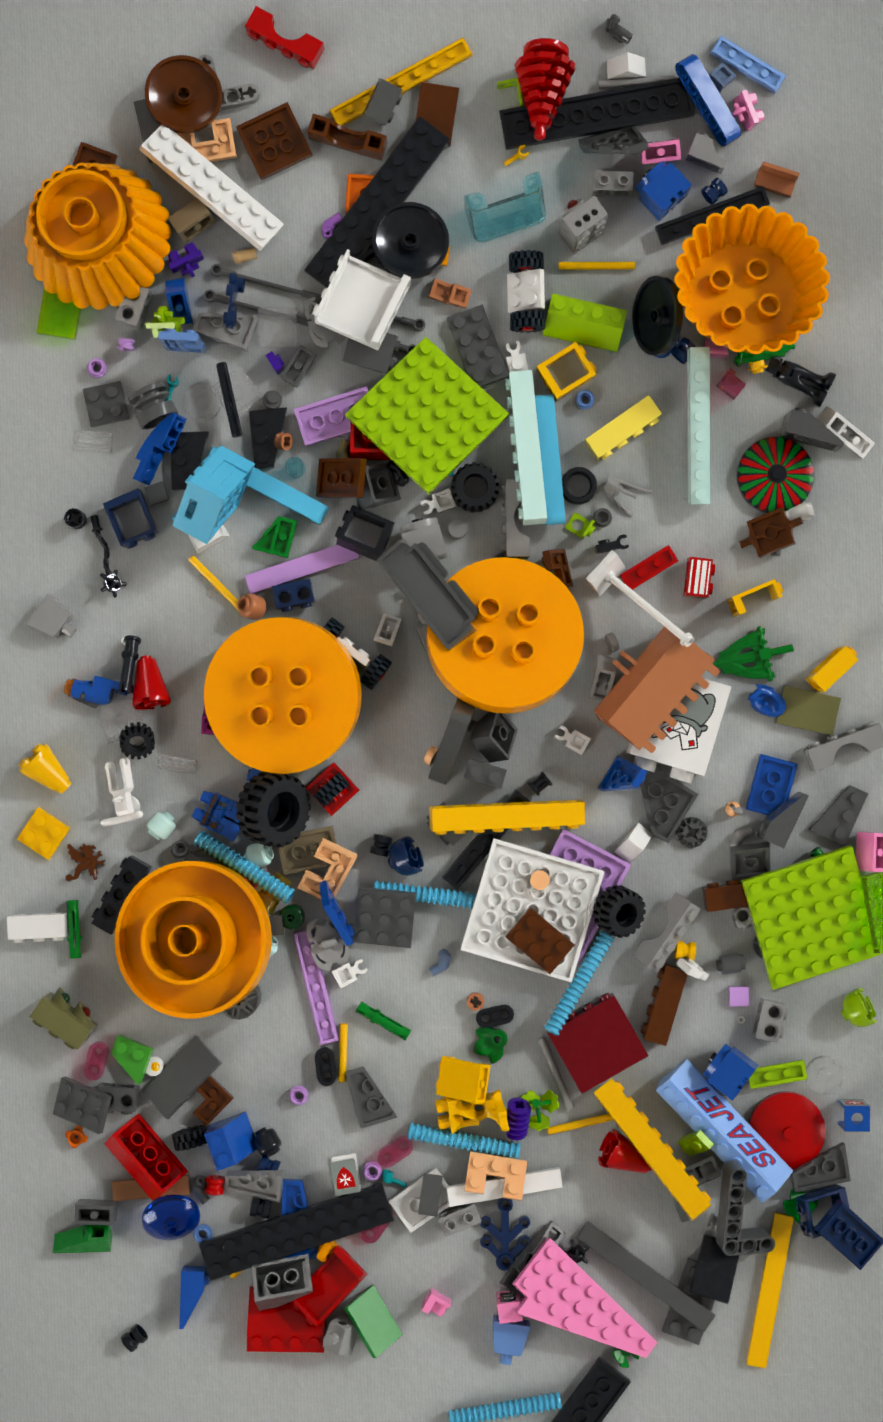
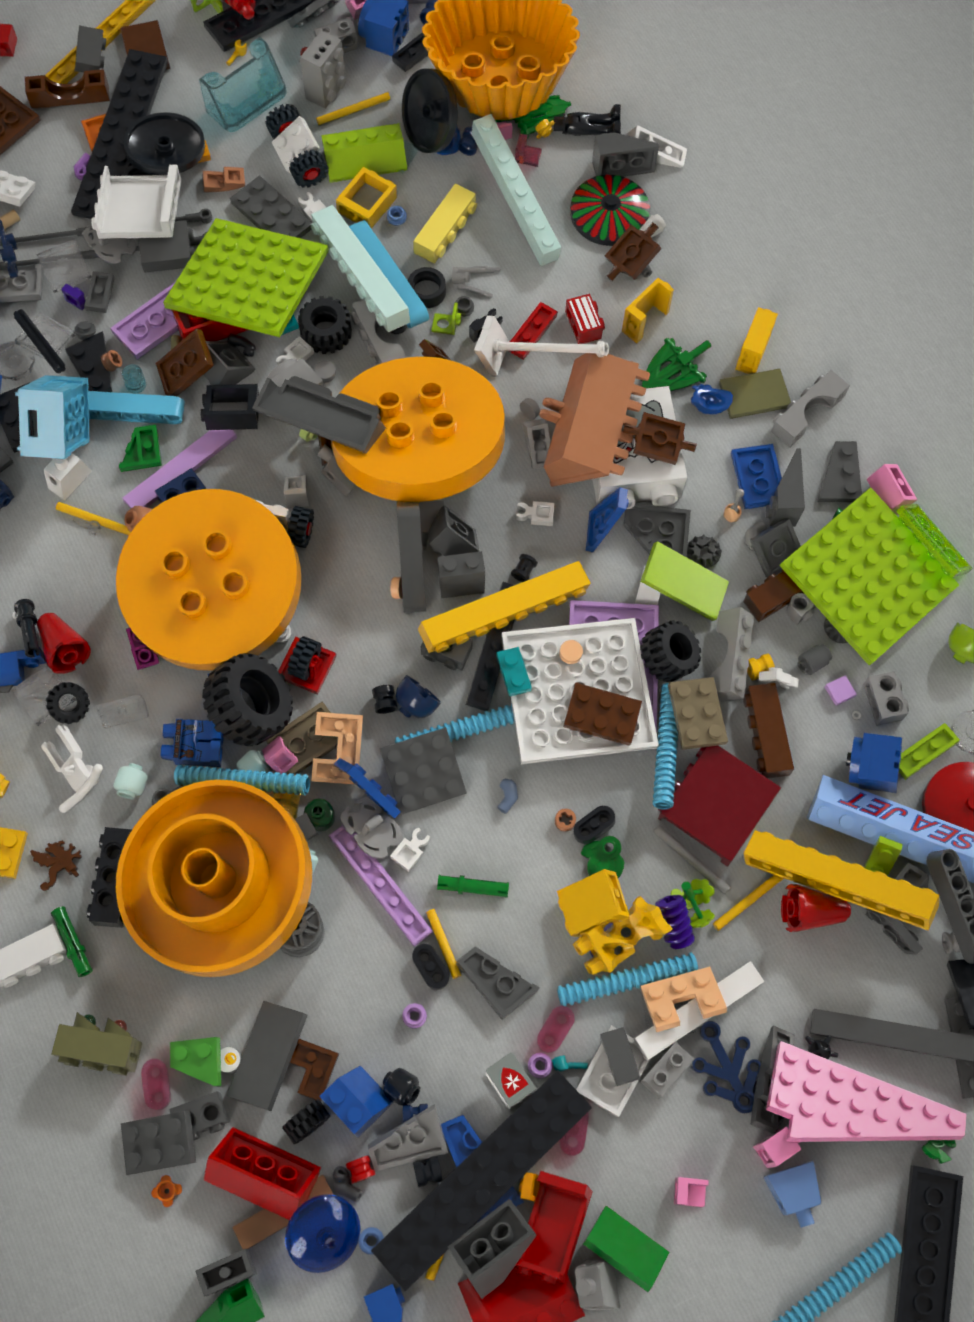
camera: 30 degrees left, 20 degrees down
(279, 860) = (279, 756): none -> bright pink panel
(487, 876) = (514, 671): none -> teal plate
(614, 971) = (697, 713): none -> dark tan plate
(660, 857) = (684, 581): none -> lime tile
(697, 735) = (659, 438): none -> reddish brown plate

